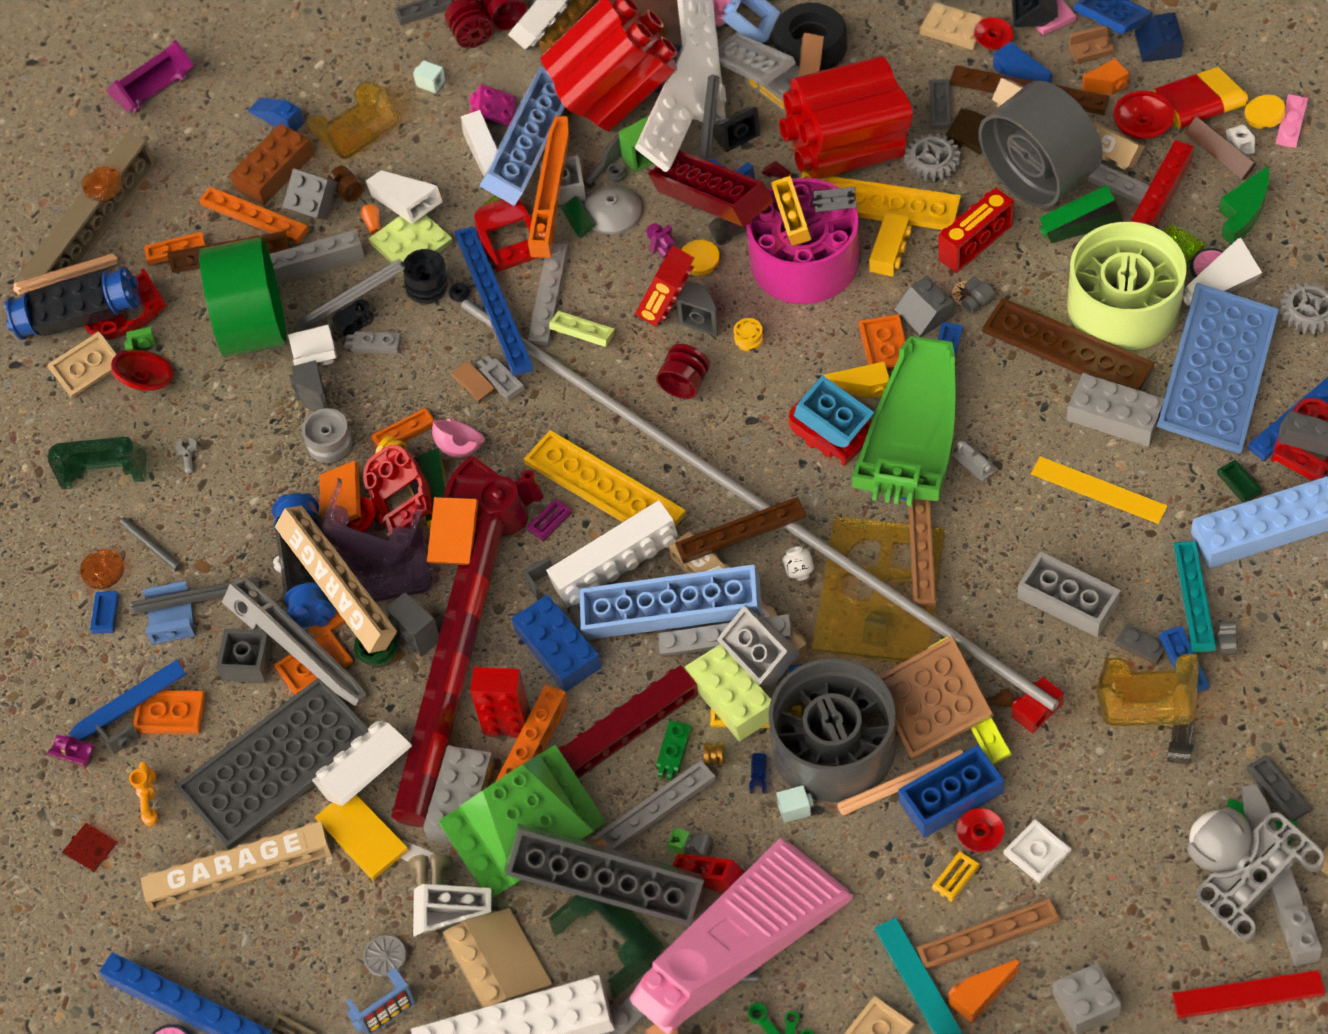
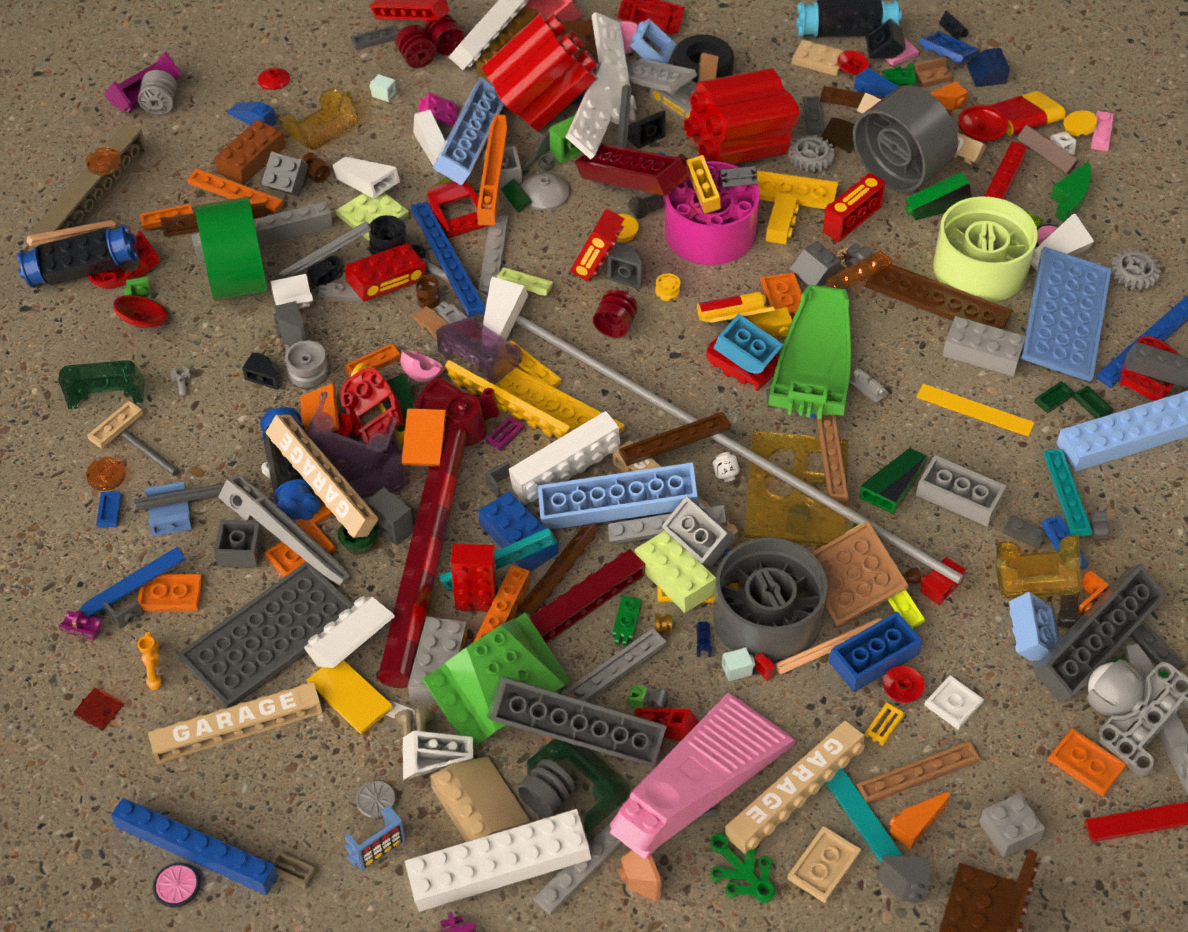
camera: 10 degrees left, 5 degrees down
(83, 365) = (87, 307): tan plate -> none
(112, 509) = (115, 424): none -> tan plate
(166, 88) = (157, 92): none -> light grey wheel
(275, 443) = (260, 371): none -> black slope
(303, 65) = (273, 78): none -> red dish
(371, 218) = (337, 193): orange cone -> none
(421, 319) = (385, 272): none -> red brick
(468, 343) = (427, 291): none -> reddish brown wheel
(523, 416) = (480, 346): none -> windscreen
(551, 369) = (503, 305): none -> white slope
(552, 484) = (507, 401): none -> yellow plate
(552, 669) = (514, 552): none -> teal tile
(569, 948) = (546, 788): none -> dark grey wheel
(581, 433) = (536, 369): none -> yellow tile
(602, 684) = (558, 569): none -> reddish brown plate
(660, 239) = (589, 212): magenta hips -> none
(823, 361) = (729, 307): none -> yellow door
(824, 806) = (764, 666): none -> red plate
(846, 950) = (794, 787): none -> tan brick
(974, 314) = (859, 271): none -> clear orange tile
(993, 581) = (894, 481): none -> slope
(1050, 50) = (899, 76): none -> green wing
(1119, 183) = (975, 177): light grey plate -> none
(1139, 764) = (1033, 626): none -> light blue slope
(1182, 924) = (1087, 762): none -> orange tile
(1194, 474) = (1054, 397): none -> dark green tile
(1211, 771) = (1099, 632): none -> dark grey brick
(1212, 712) = (1094, 585): none -> orange bracket

